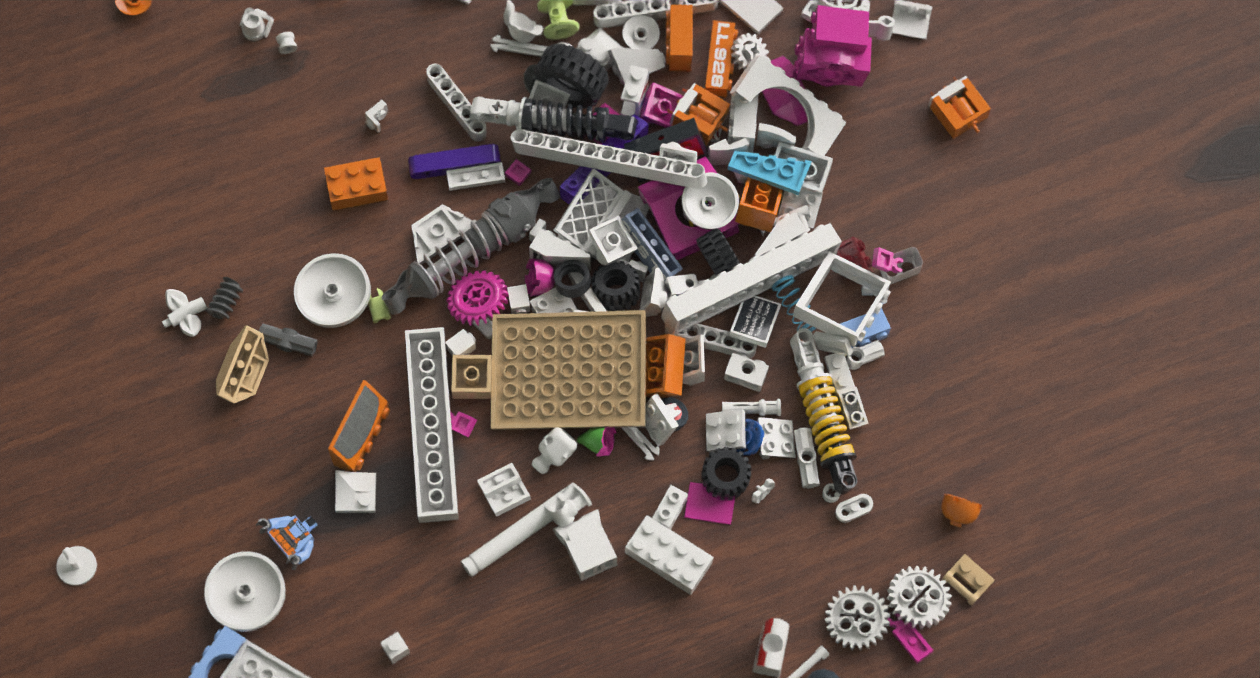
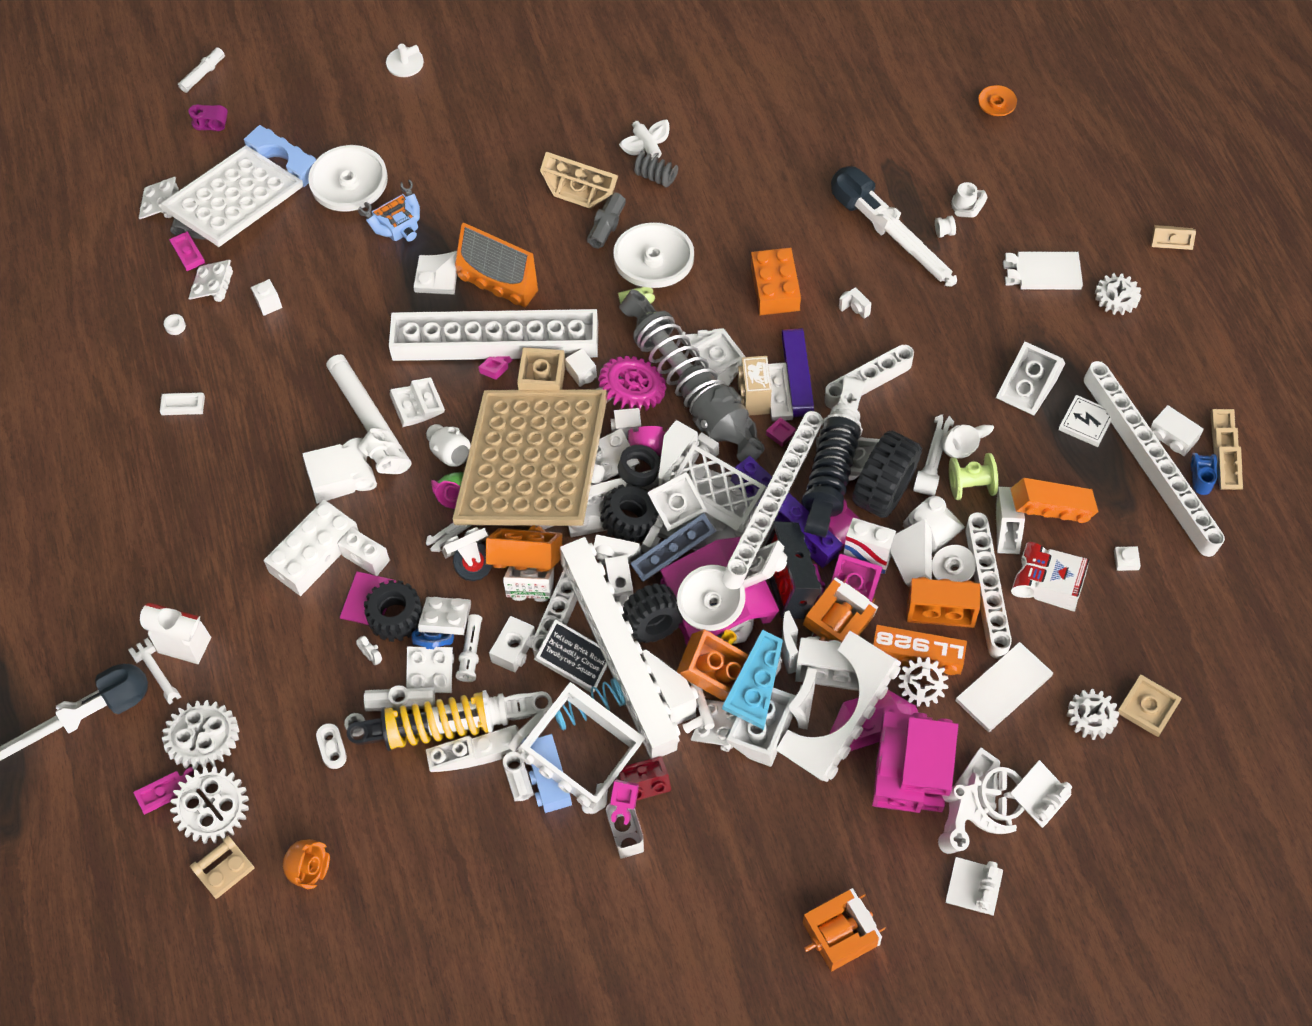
camera: 100 degrees right, 10 degrees down
(253, 115) = (856, 192): none -> white piece
(476, 190) = (755, 385): none -> tan brick

